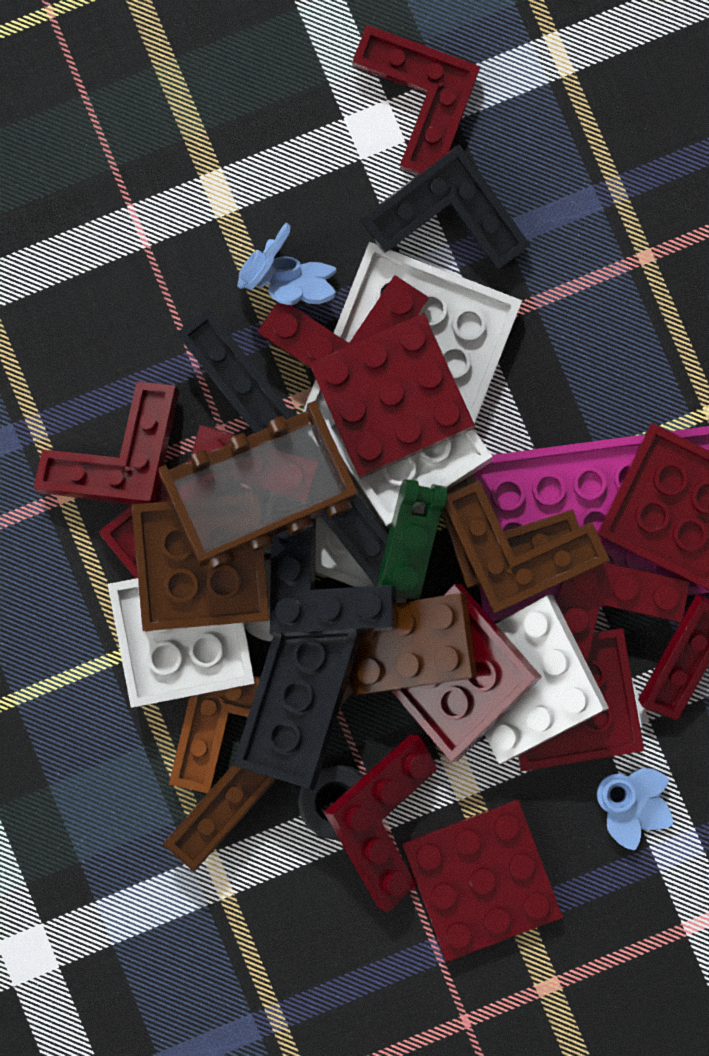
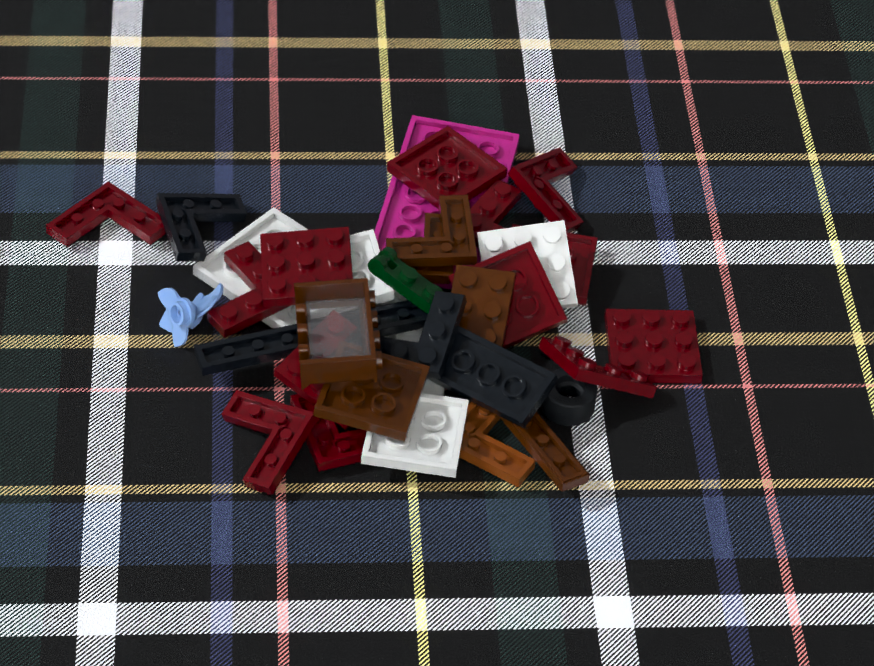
camera: 75 degrees left, 40 degrees down
(638, 809) = (631, 259): light blue plate -> none

